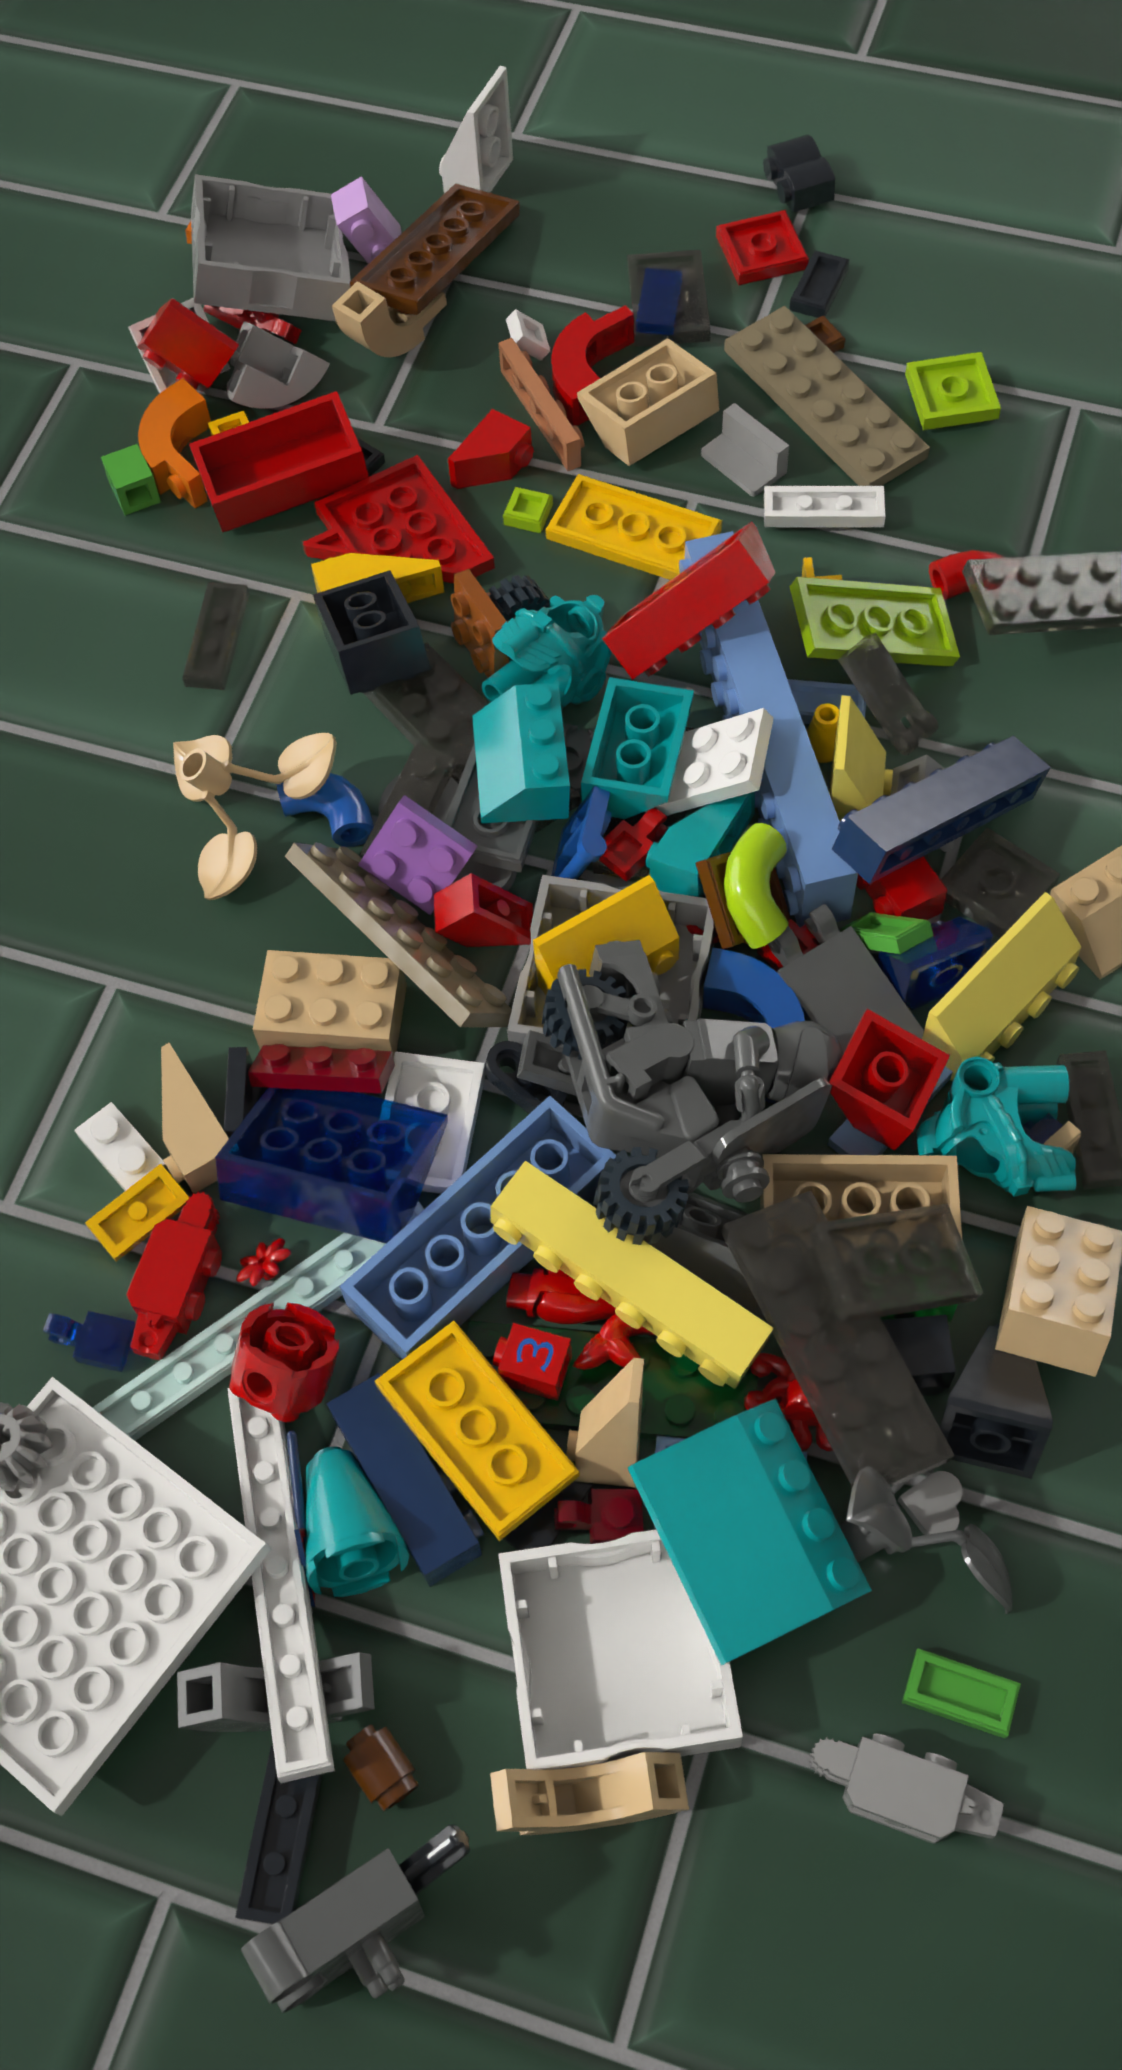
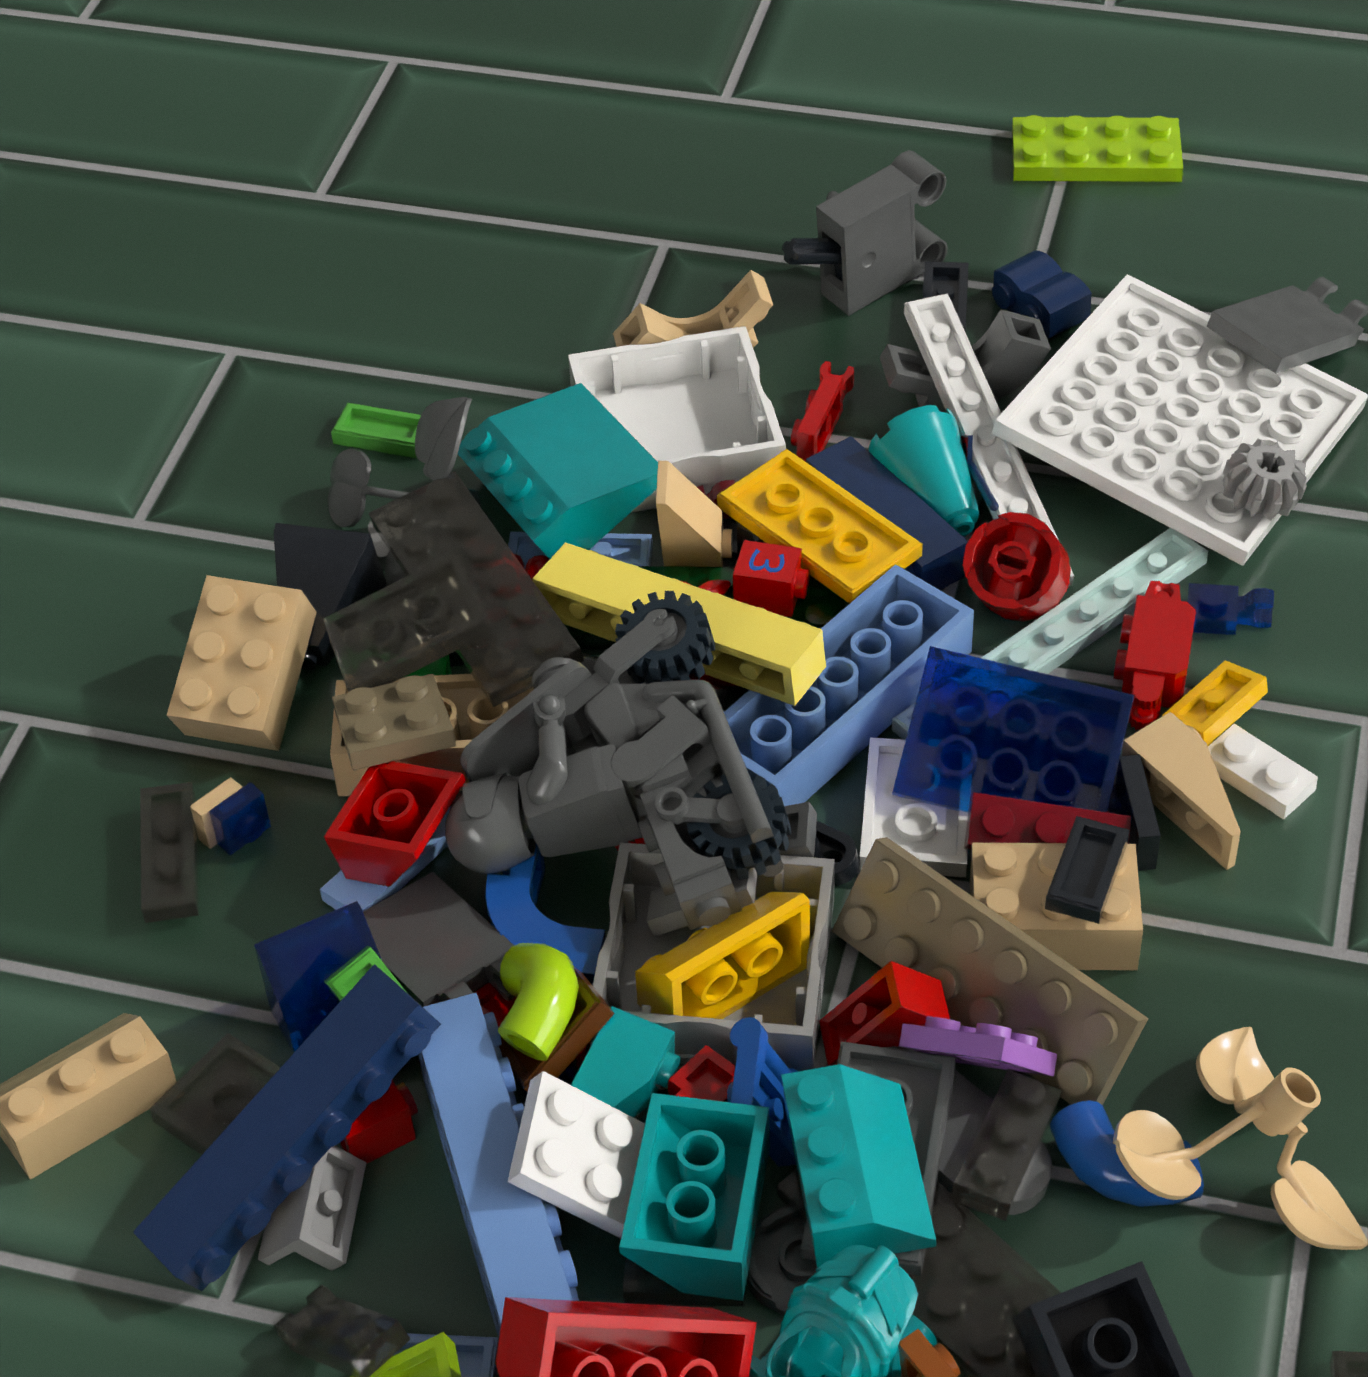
camera: 175 degrees right, 15 degrees down
(159, 1849) = (1041, 290): none -> dark blue brick
(264, 1263) = (1065, 664): red plant -> none
(299, 987) = (1087, 869): none -> black tile
(380, 1767) = (863, 344): reddish brown brick -> none
(448, 1660) = (821, 412): none -> red plate
(823, 731) = (437, 1290): yellow cone -> none
(857, 762) = (402, 1187): light yellow slope -> none
(899, 1163) = (393, 721): none -> dark tan plate
(906, 1791) = (439, 362): light grey hinge -> none
(985, 1122) = (284, 822): teal helmet -> none
(1005, 986) = (223, 980): light yellow slope -> none

